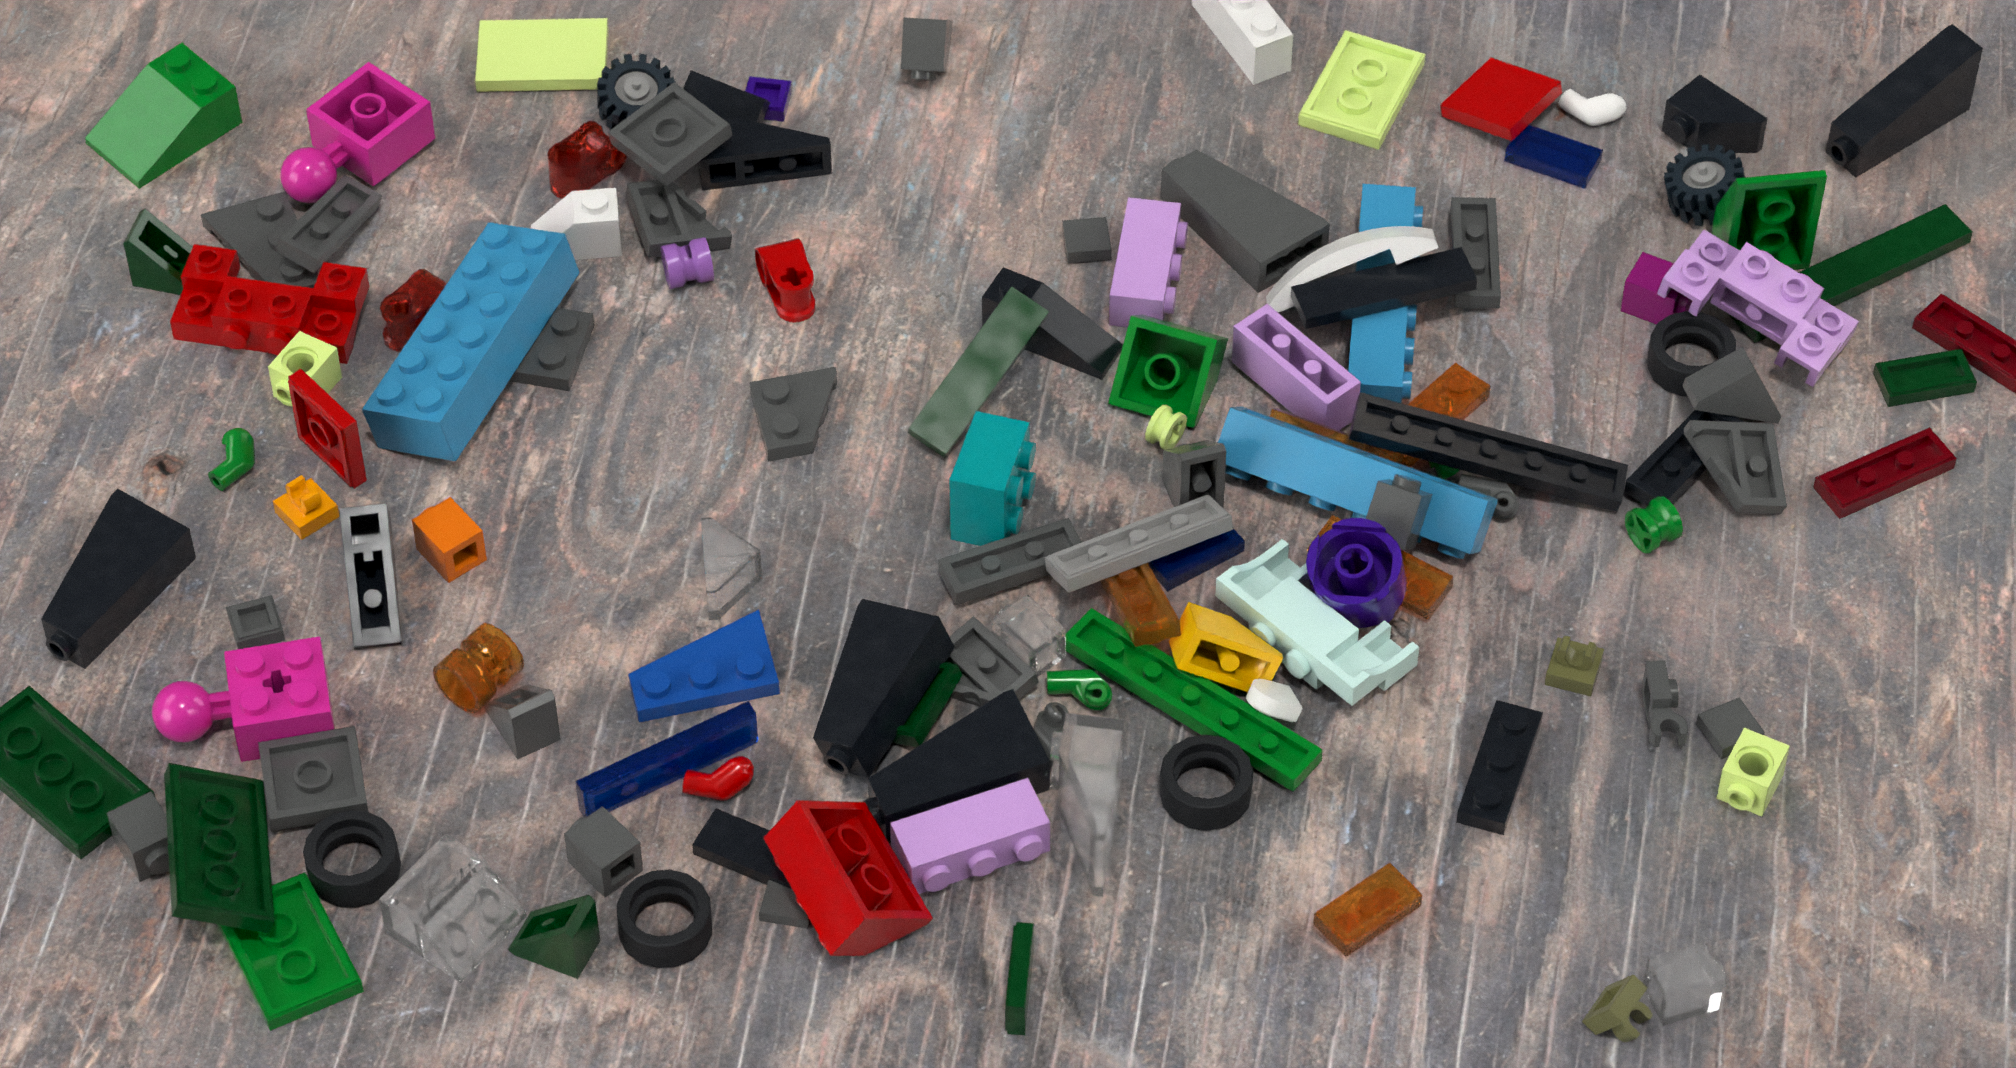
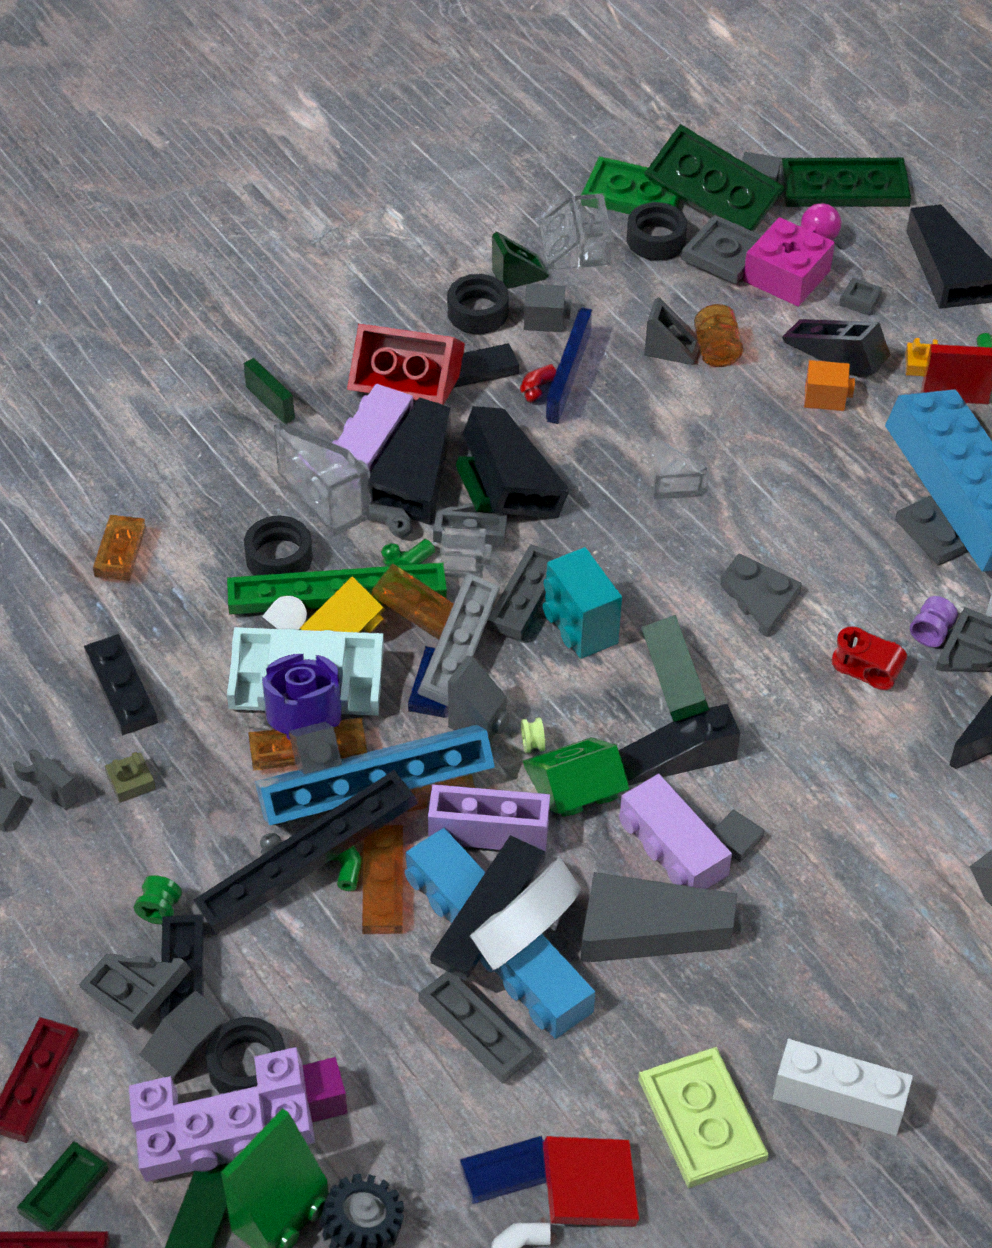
camera: 135 degrees right, 0 degrees up
(708, 673) = (611, 429): blue wing -> none

